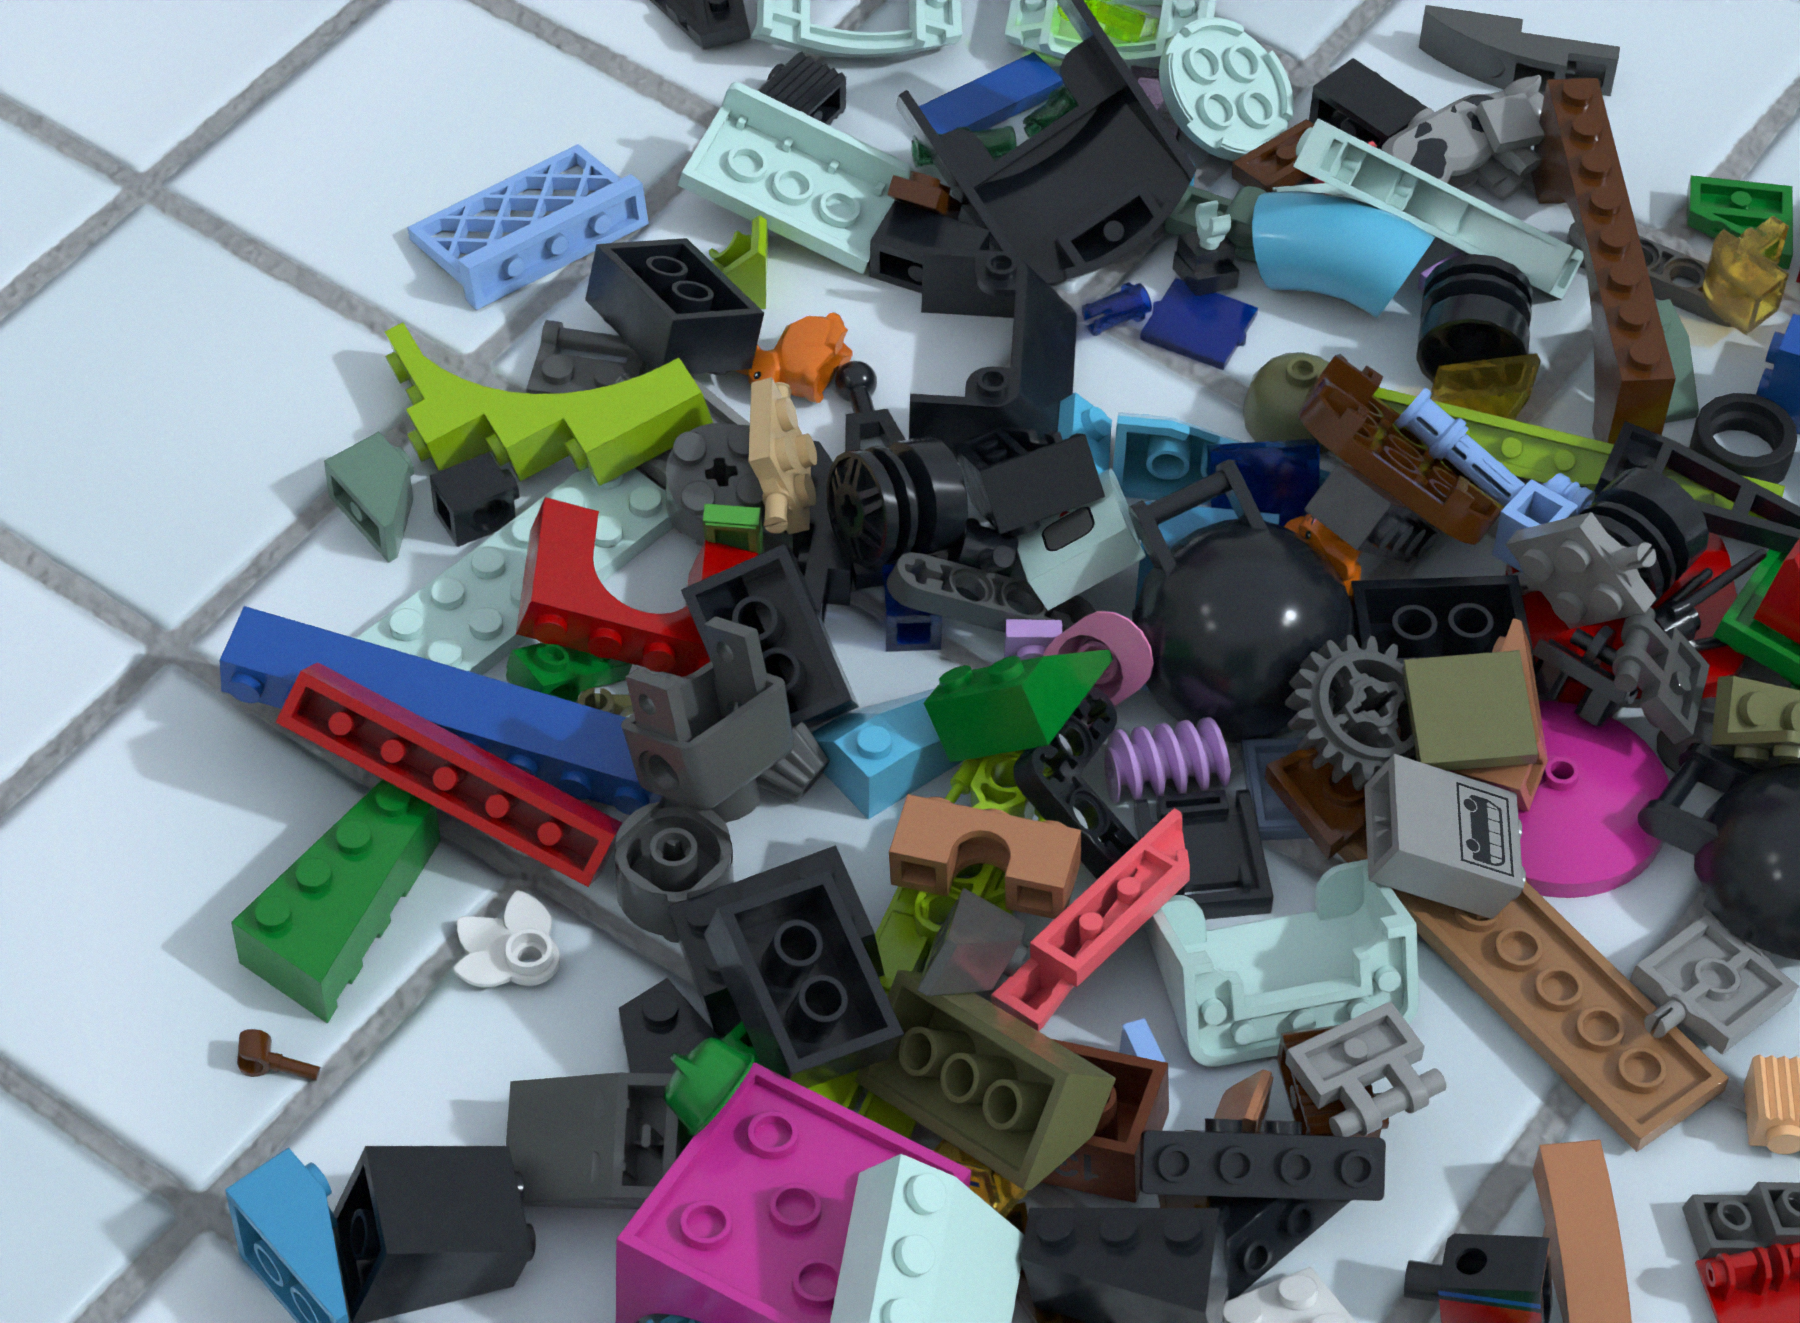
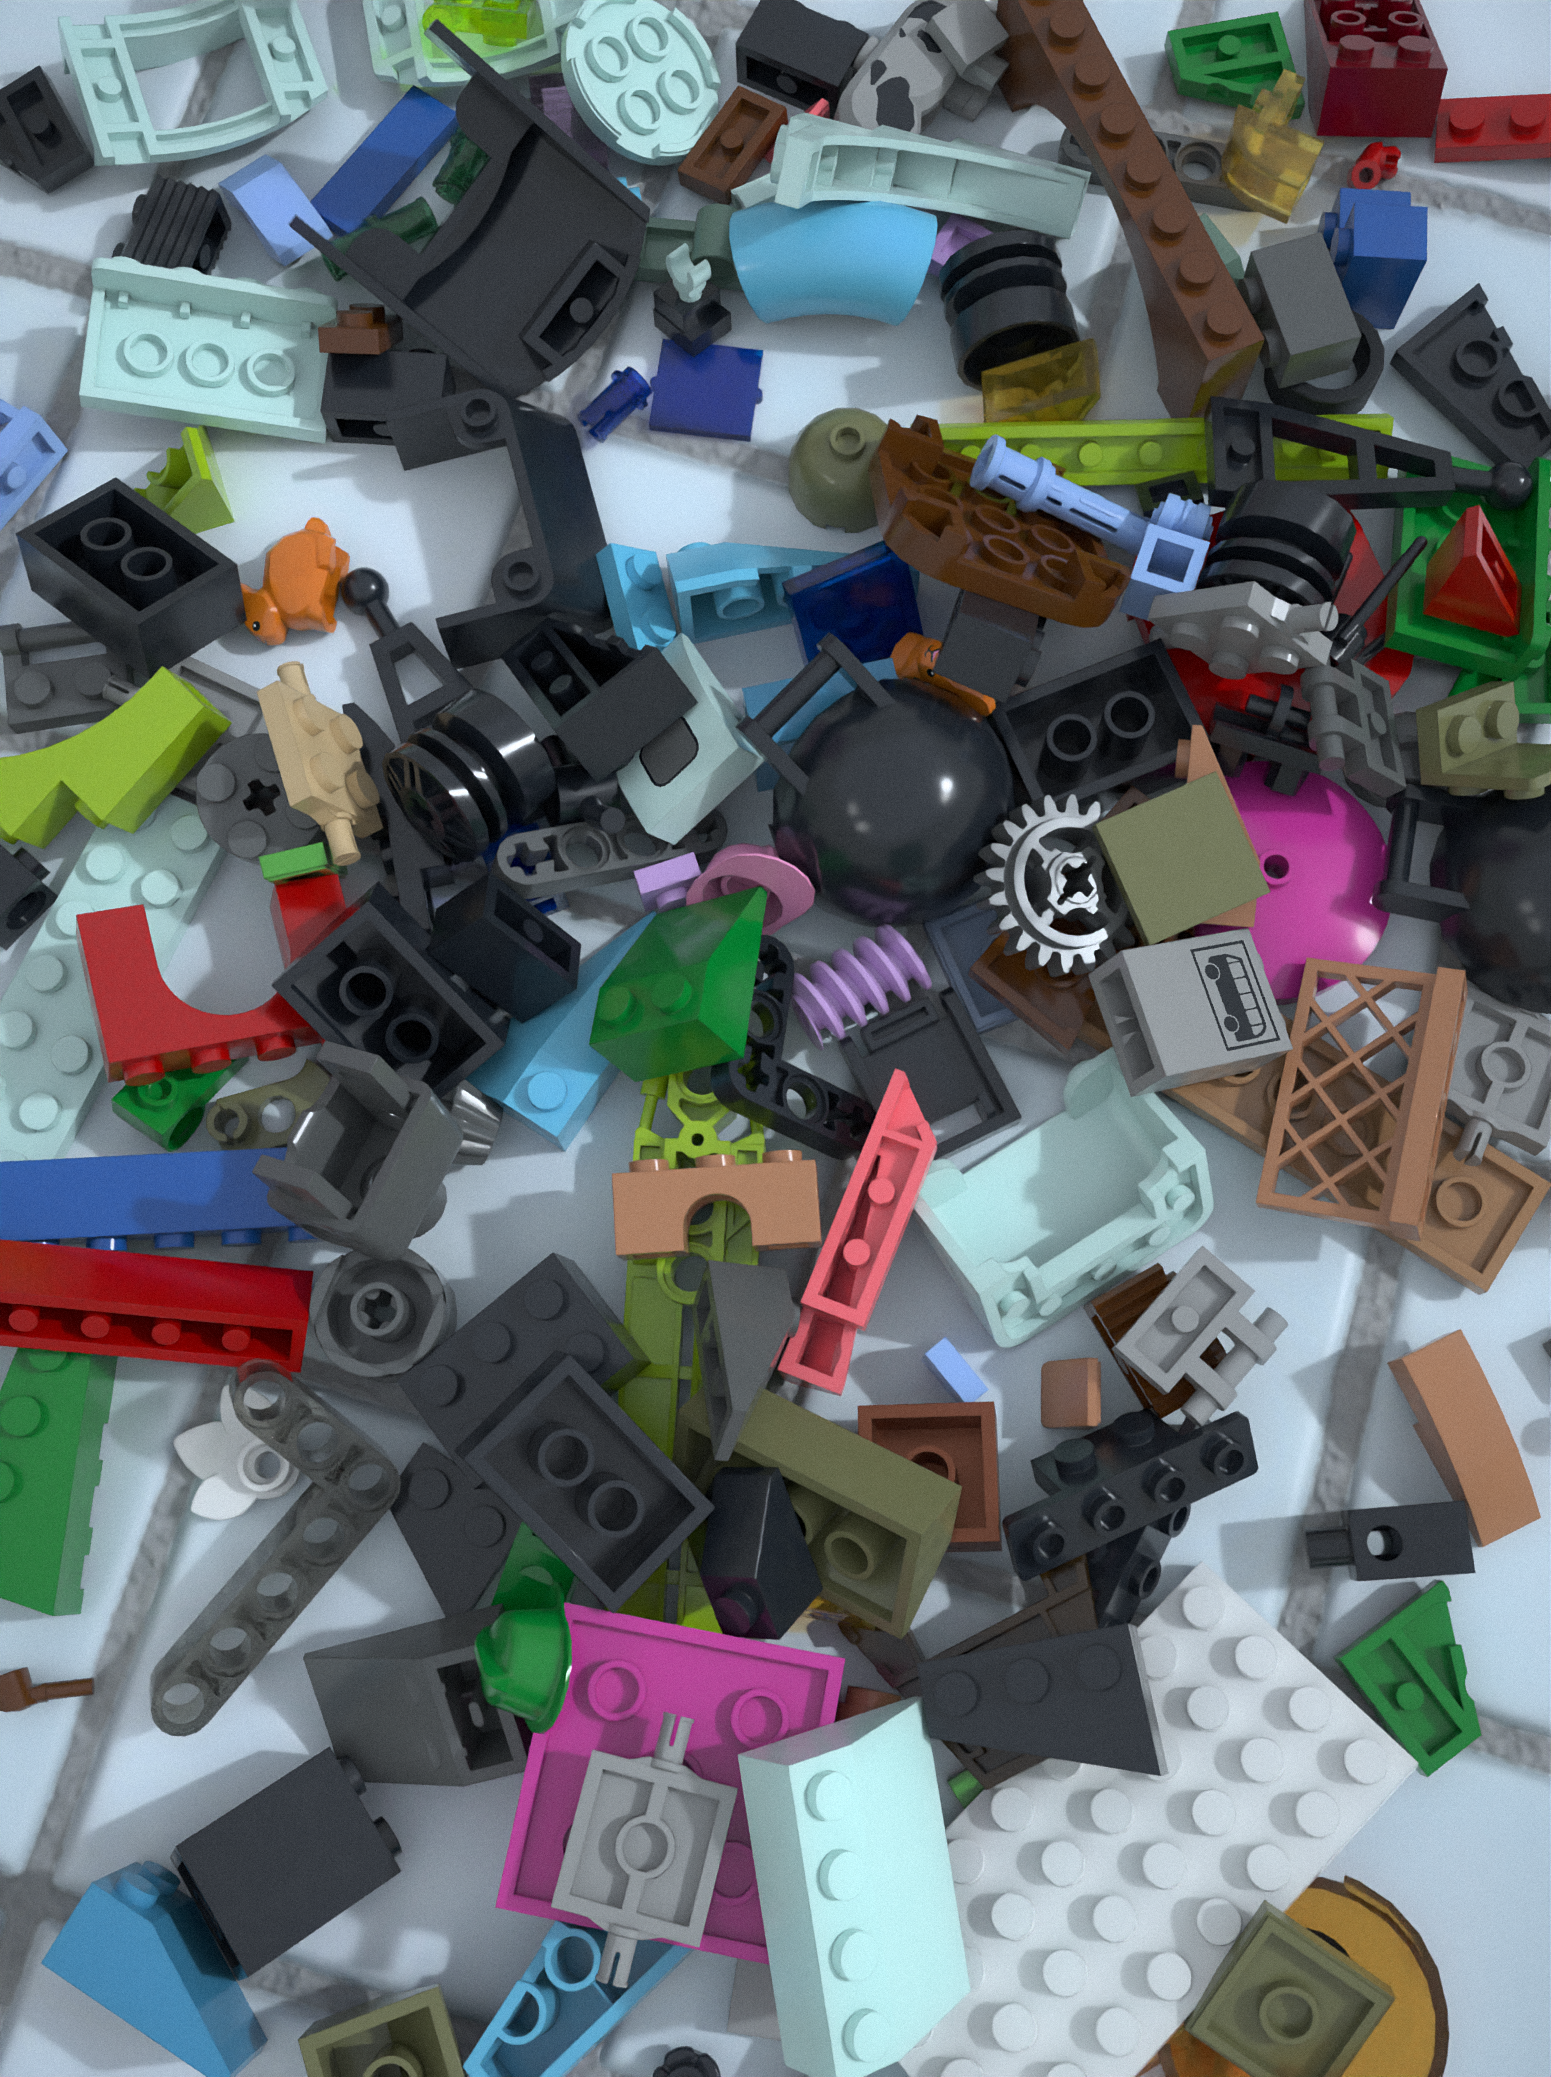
camera: 15 degrees left, 25 degrees up
(527, 1007) = (282, 1550): none -> clear smoke beam
(757, 1223) = (645, 1849): none -> light grey plate
(878, 98) = (269, 202): none -> light blue slope
(878, 637) = (505, 948): none -> black brick
(926, 1085) = (754, 1554): none -> black slope
(1620, 961) = (1422, 1101): none -> nougat fence
(1721, 381) = (1299, 310): none -> dark grey brick

